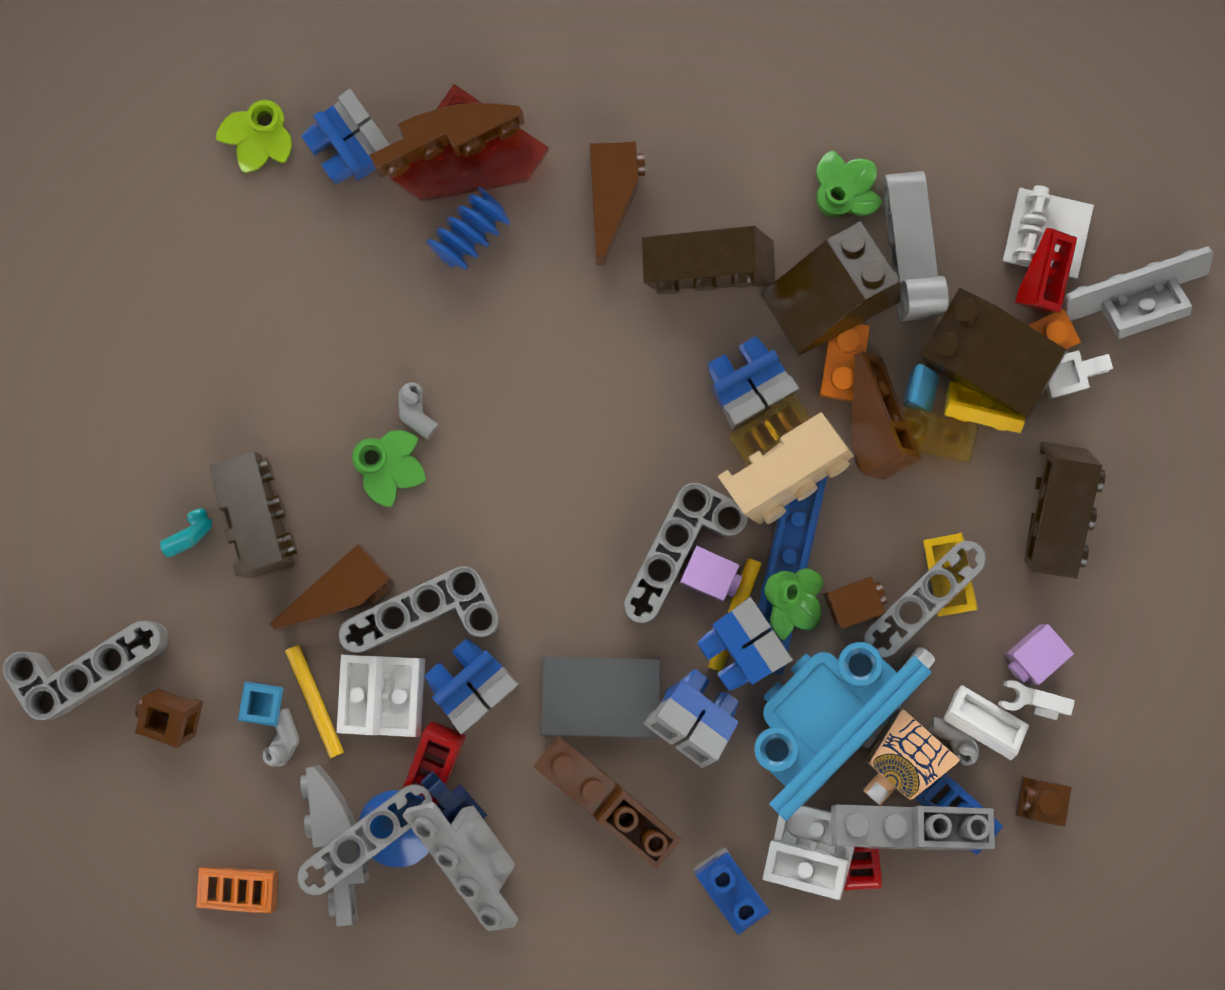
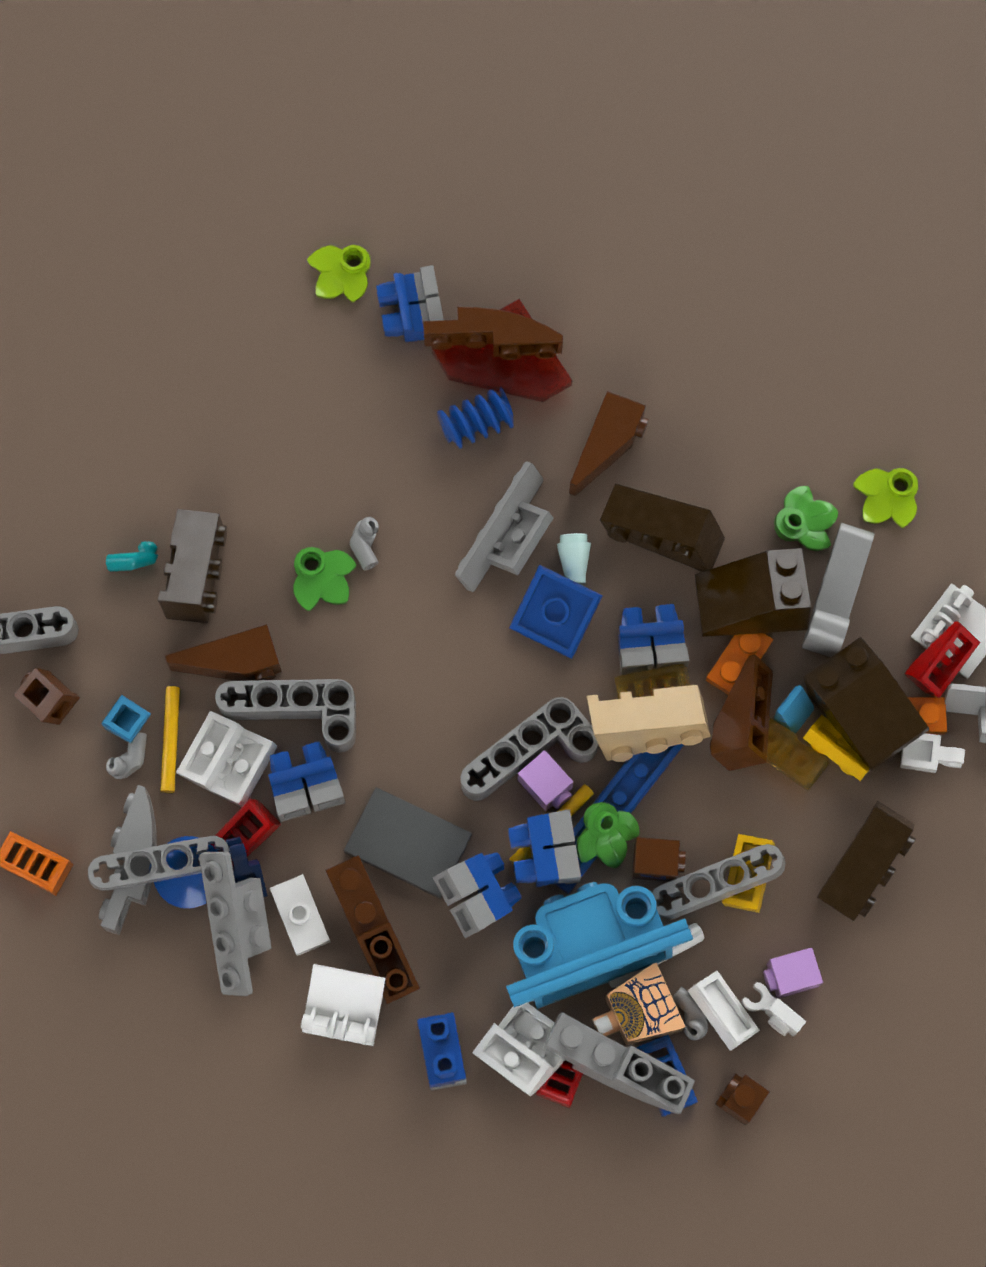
camera: 25 degrees right, 10 degrees down
(528, 818) = (300, 915): none -> white plate
(558, 334) = (509, 533): none -> light grey bracket
(614, 891) = (343, 1005): none -> white hinge
(633, 330) = (574, 556): none -> light aqua cone
(641, 395) = (556, 611): none -> blue tile
(914, 129) = (884, 499): none -> lime plate

